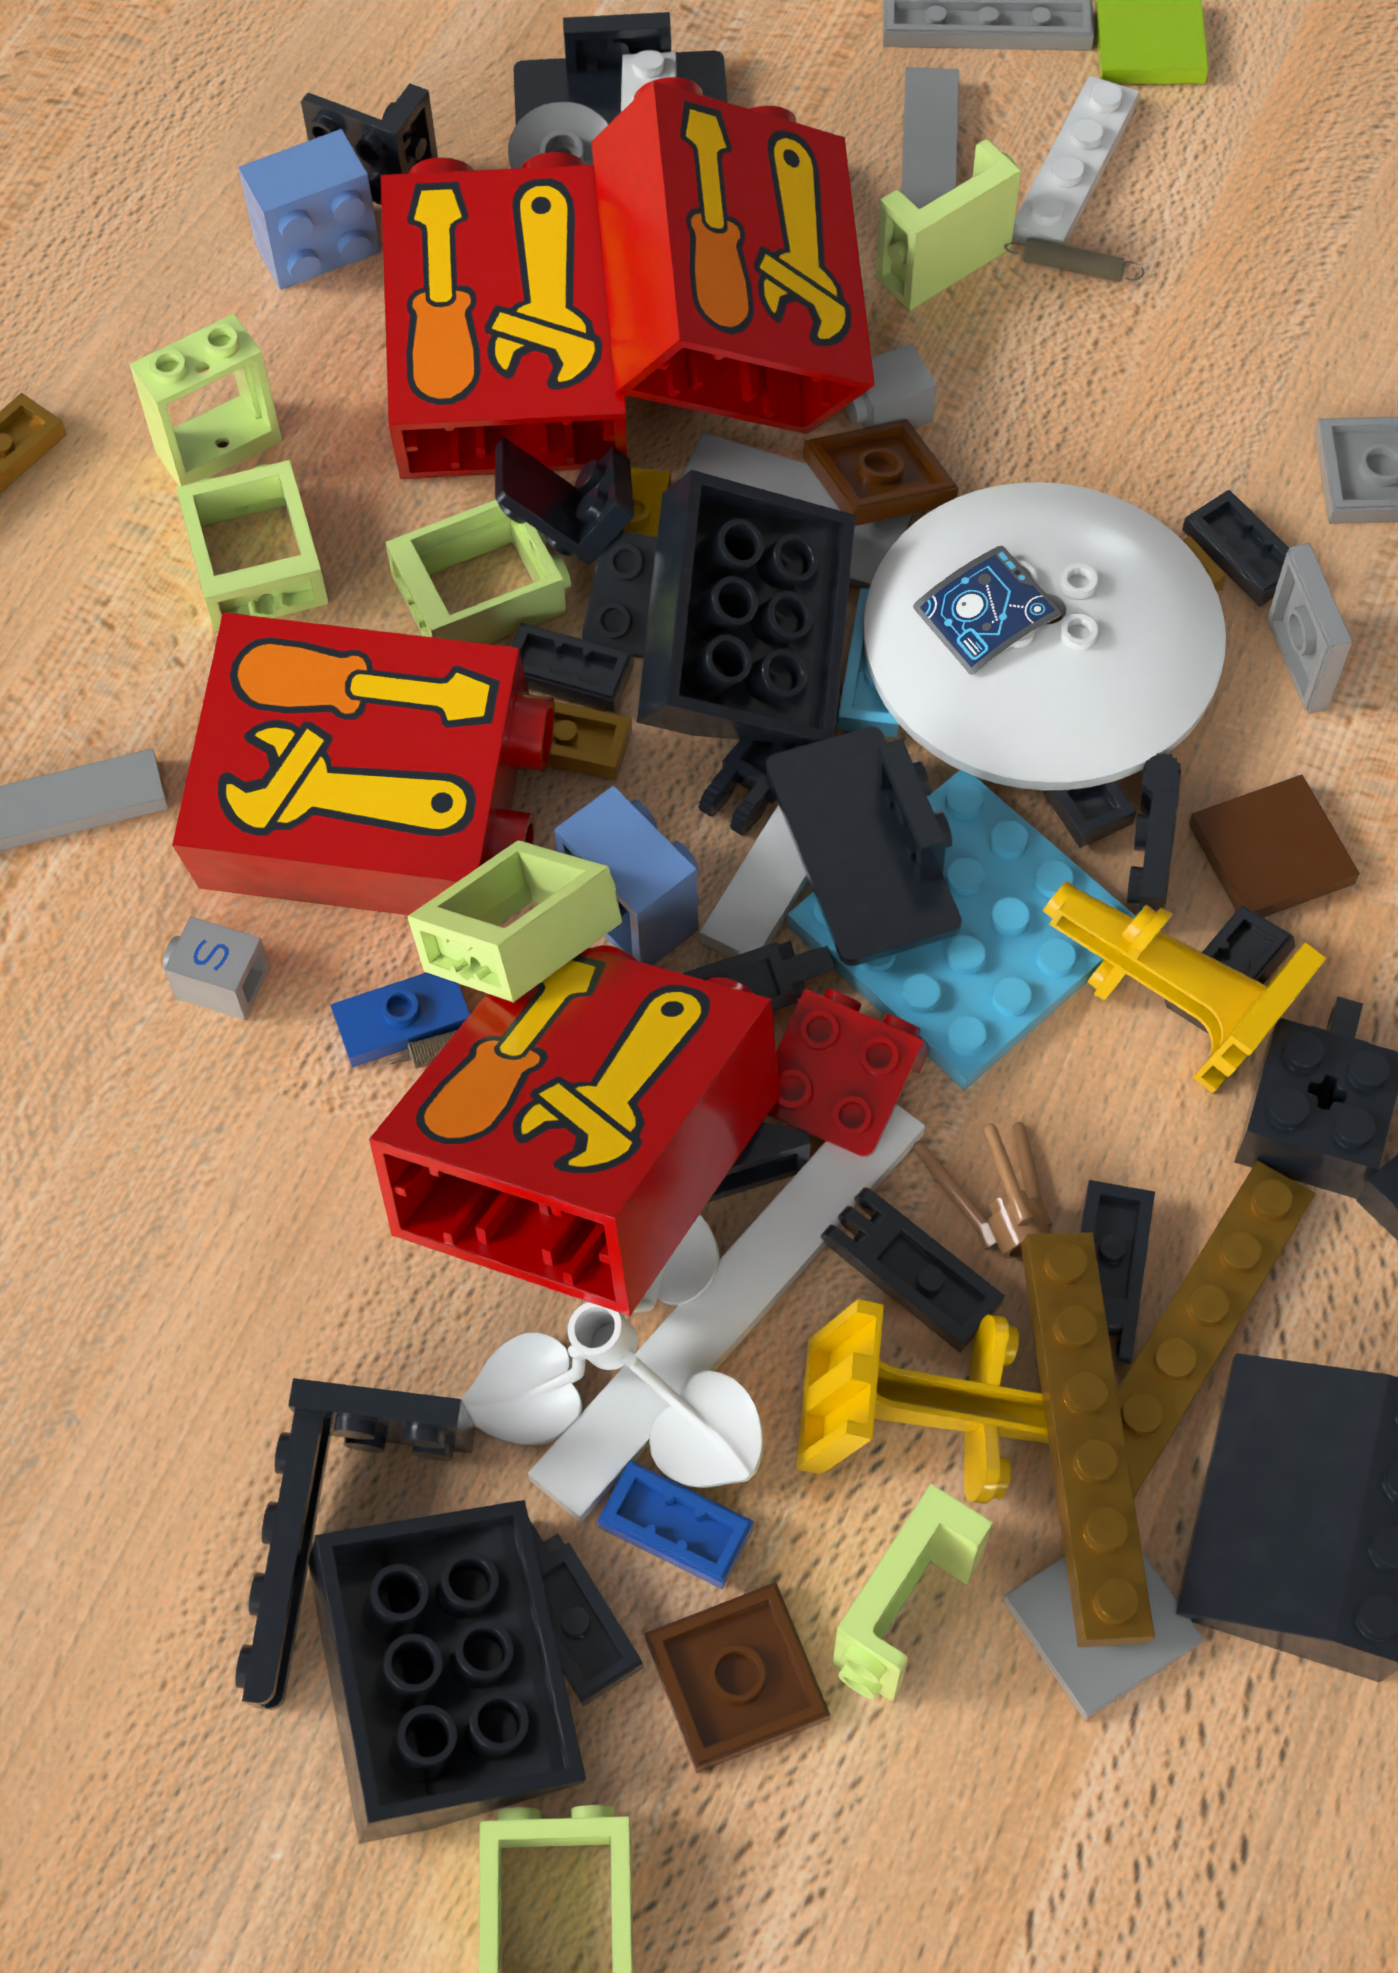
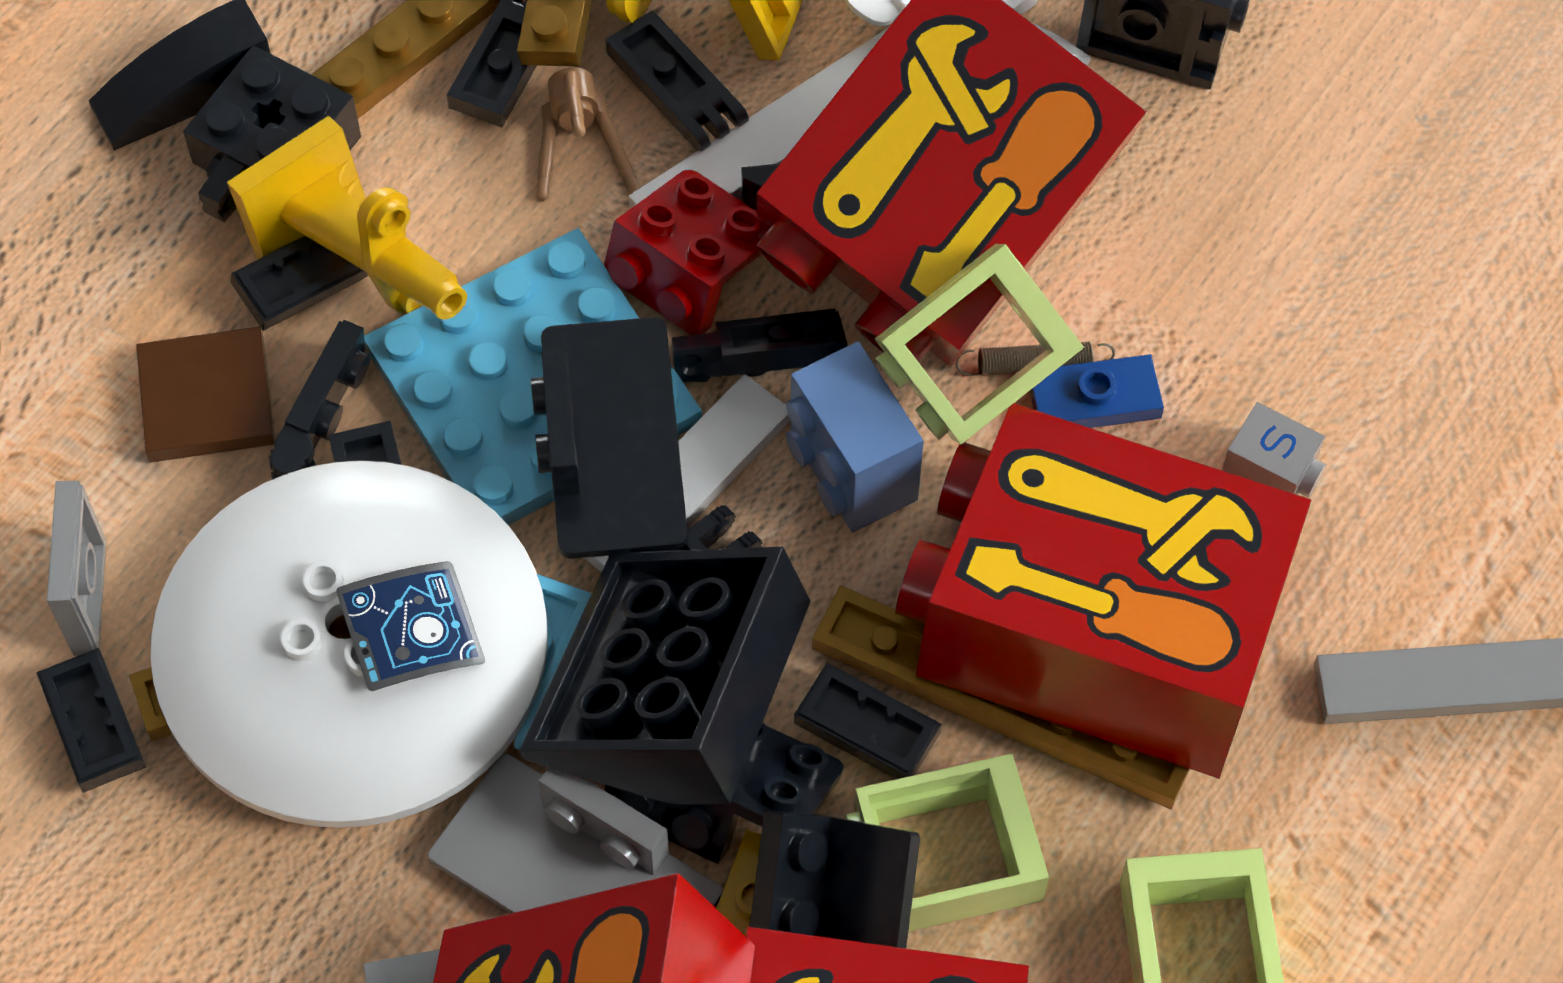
camera: 170 degrees left, 0 degrees up
(879, 472) = (455, 875): reddish brown tile -> none

